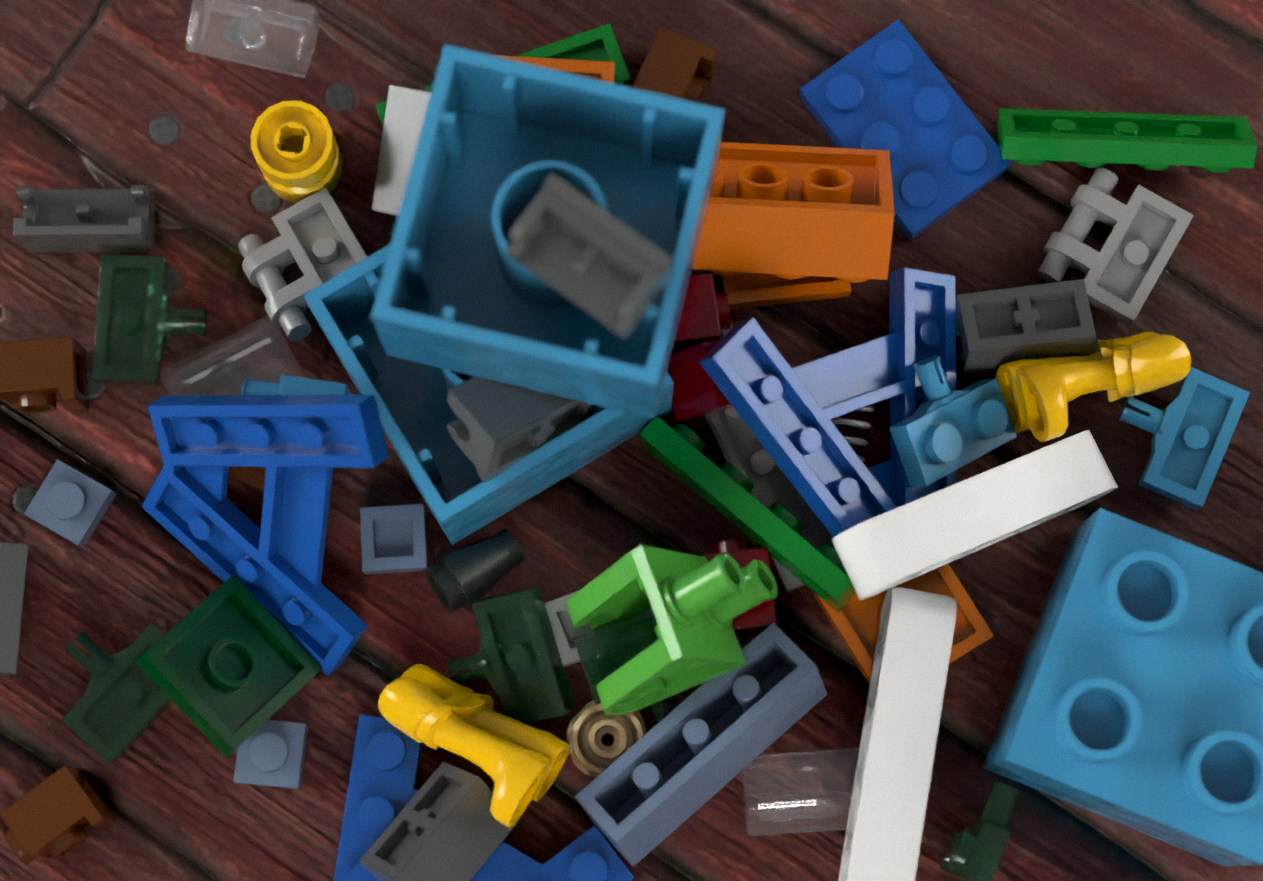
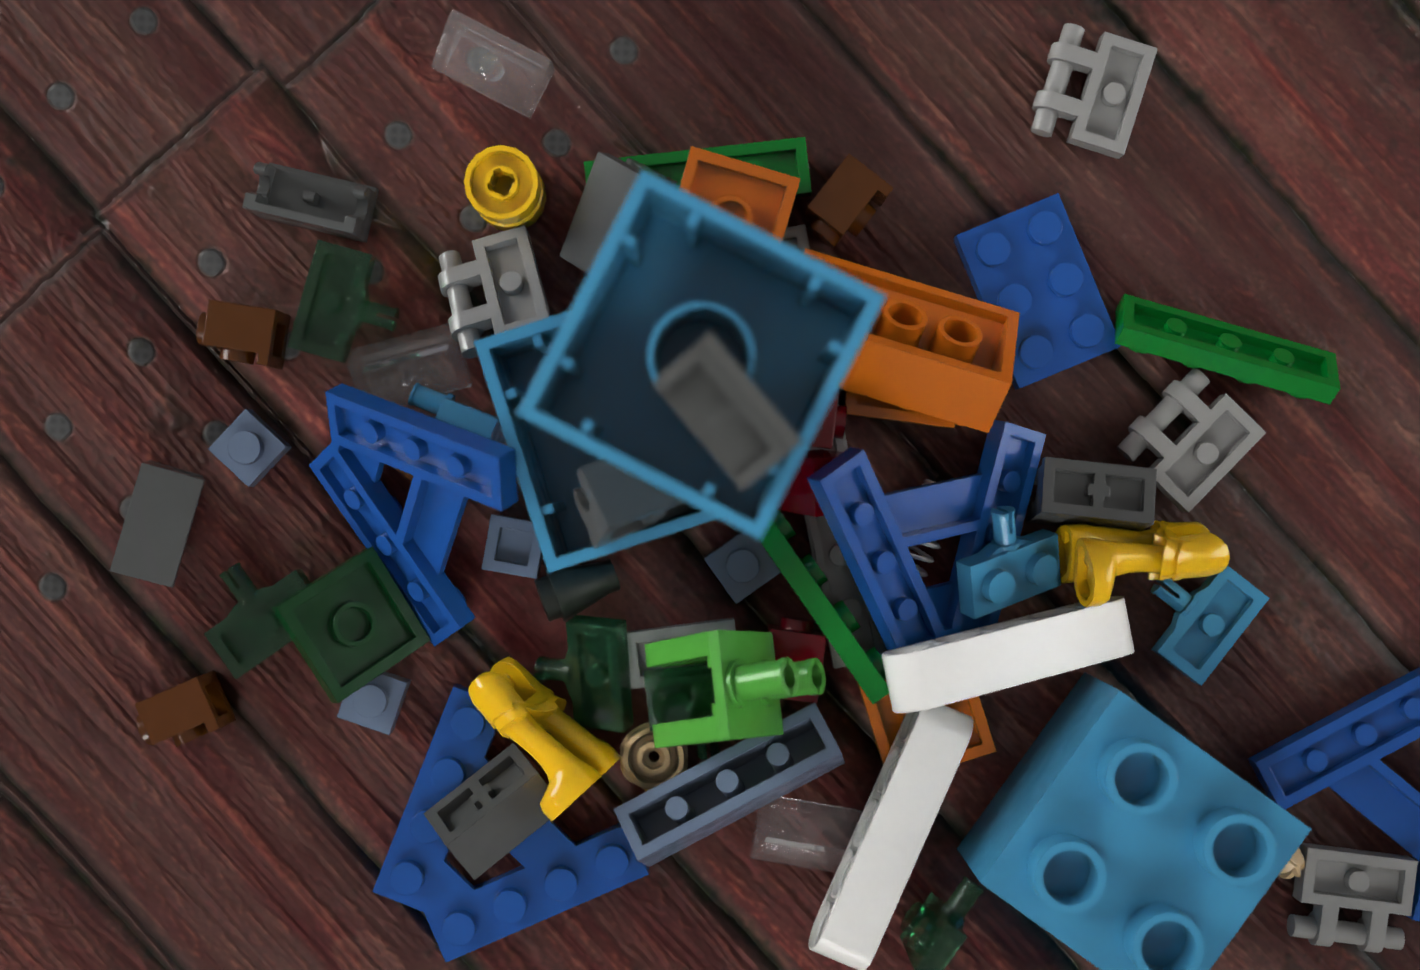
camera: 10 degrees right, 10 degrees up
(655, 501) = (742, 565): none -> sand blue plate

